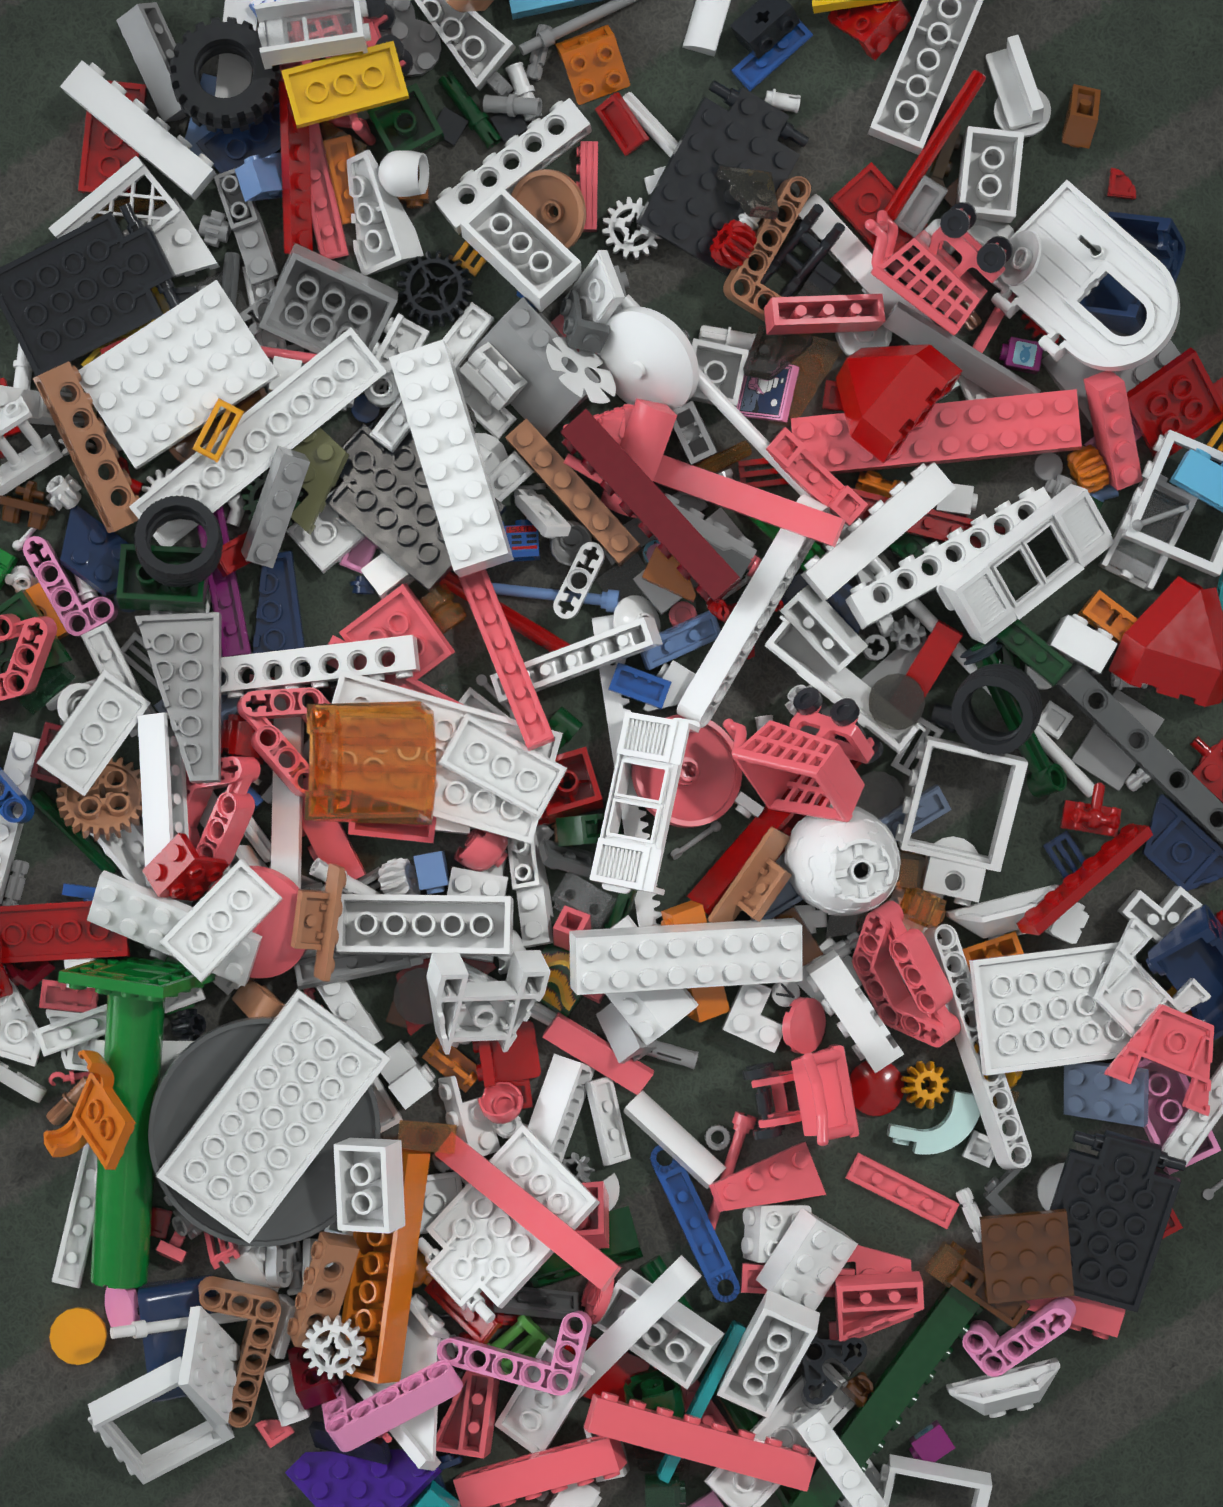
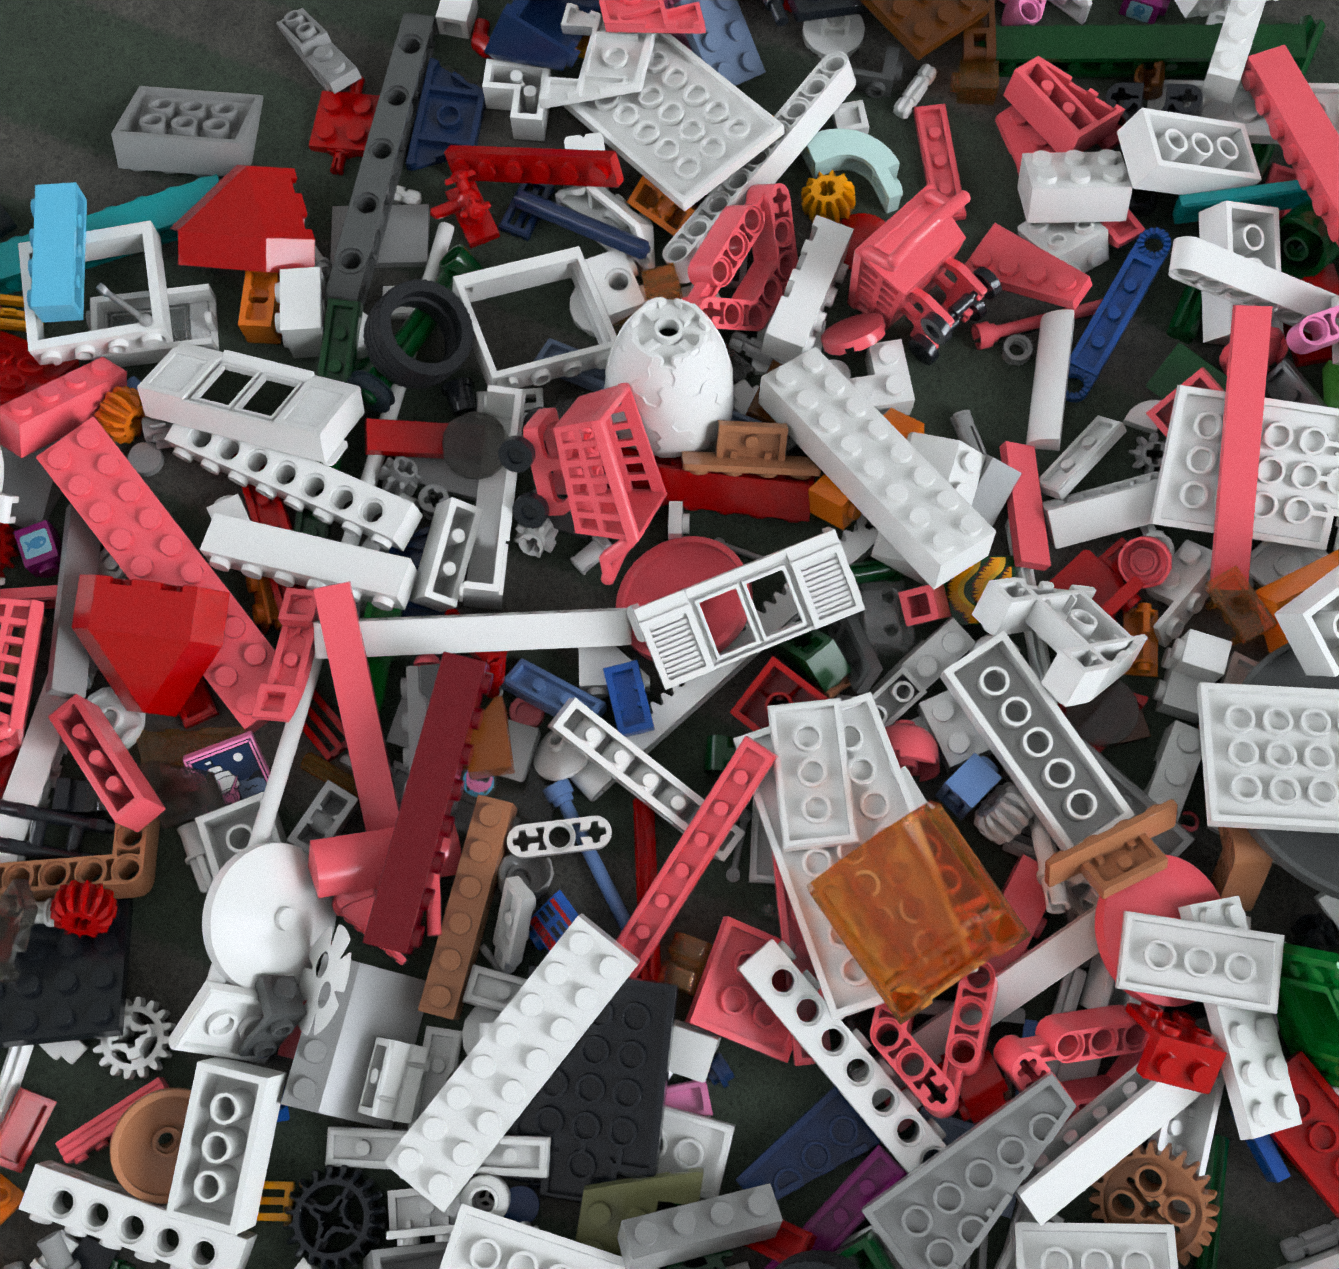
camera: 120 degrees left, 15 degrees down
(1017, 885) = (582, 224): none -> dark blue axle

